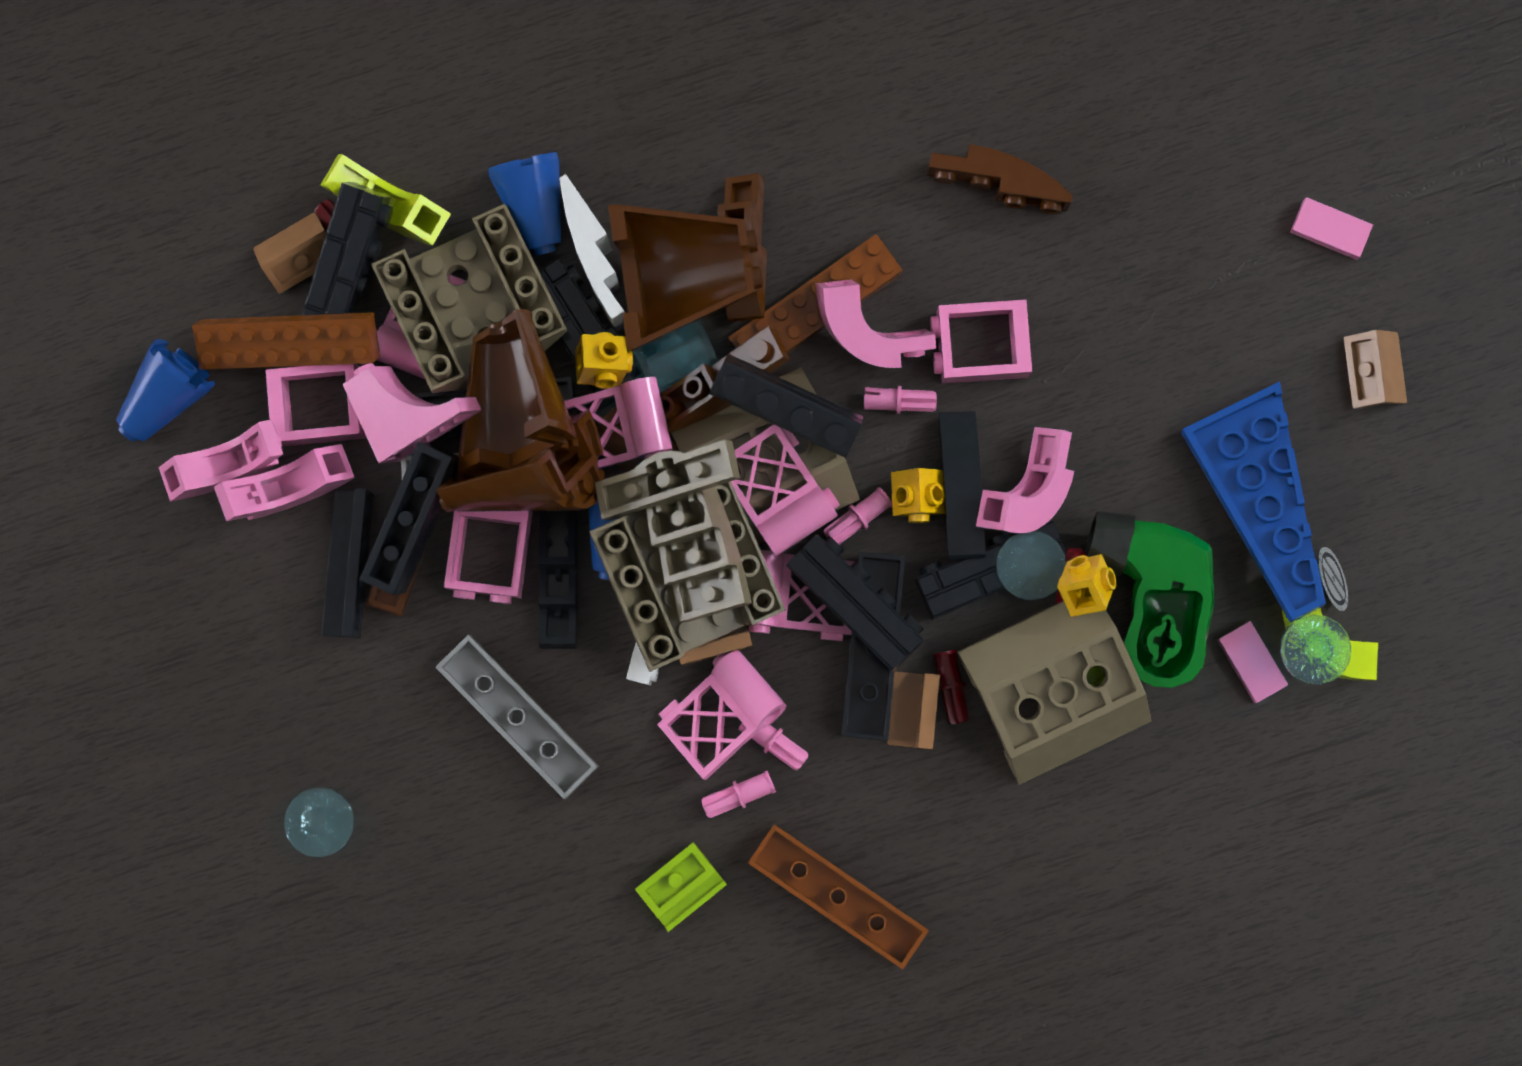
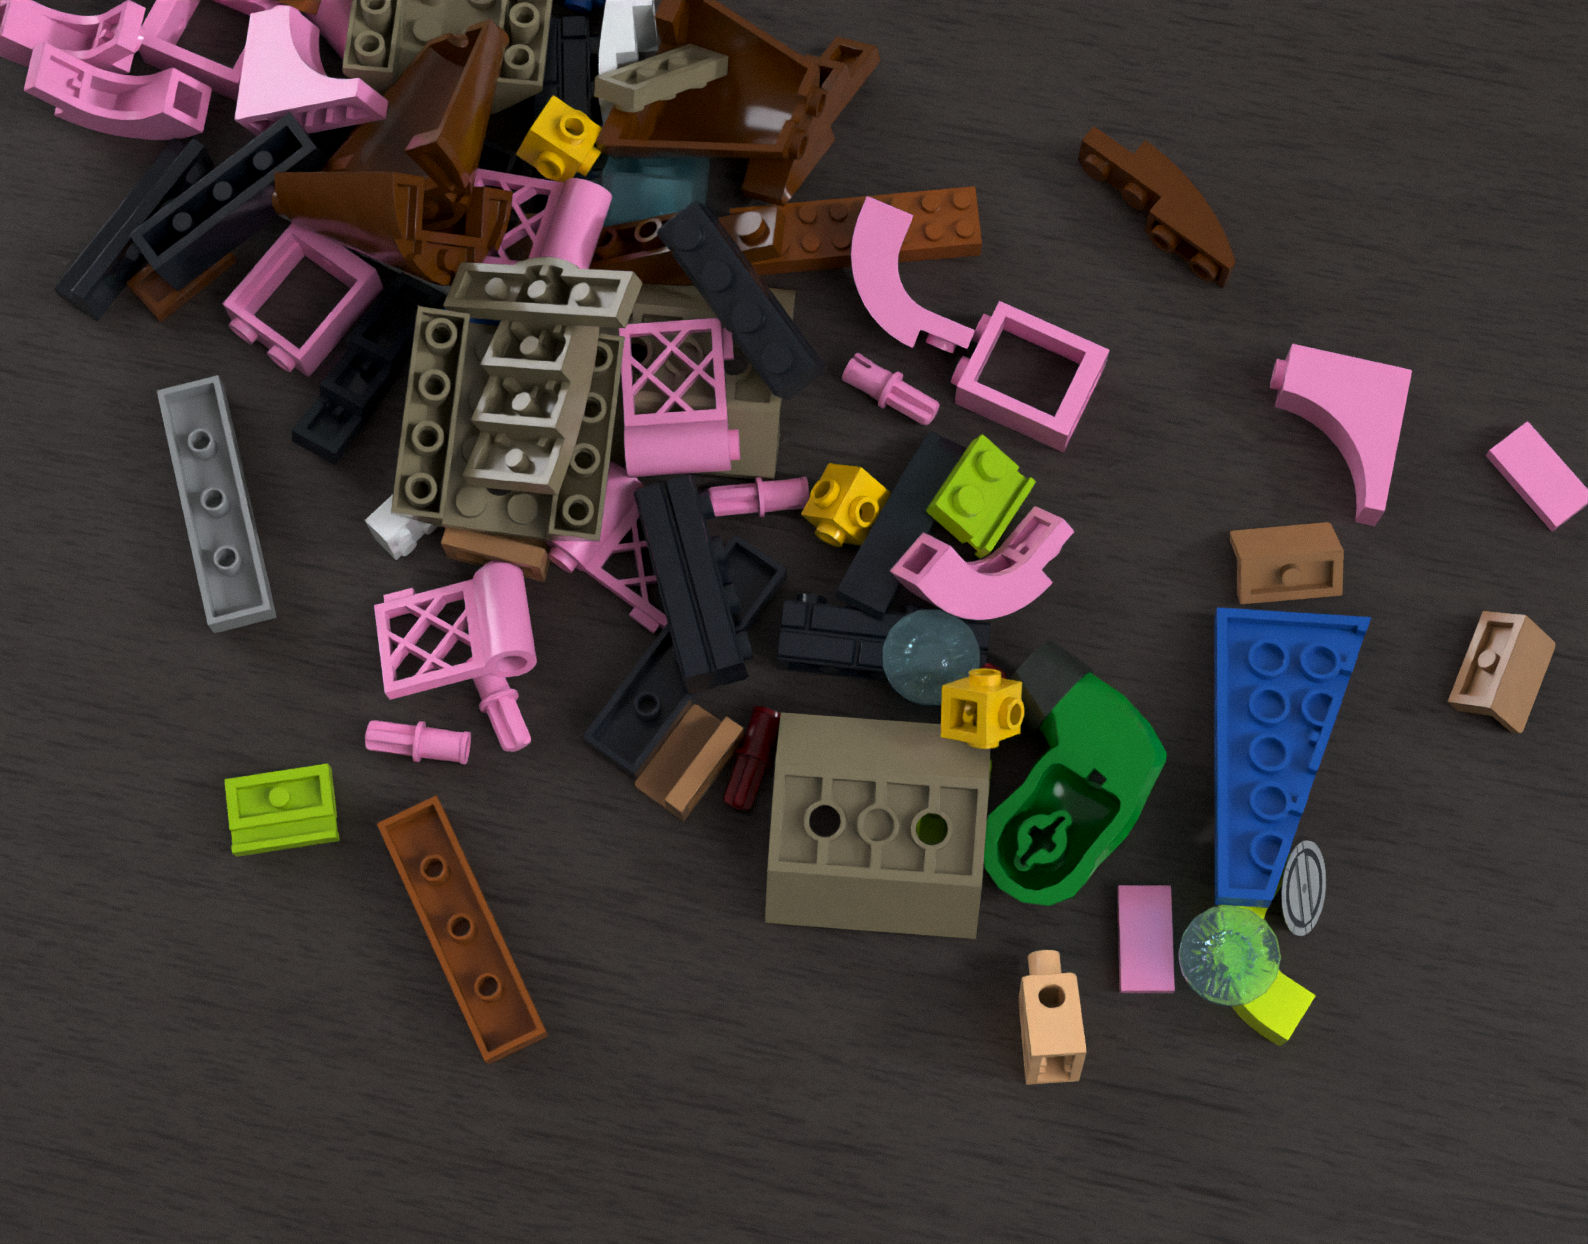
camera: 30 degrees right, 10 degrees down
(641, 279) = (660, 77): none -> dark tan plate
(998, 440) = (980, 496): none -> lime plate
(1198, 248) = (1356, 406): none -> bright pink arch
(1208, 372) = (1288, 563): none -> medium nougat panel
(1231, 762) = (1051, 1021): none -> light nougat torso

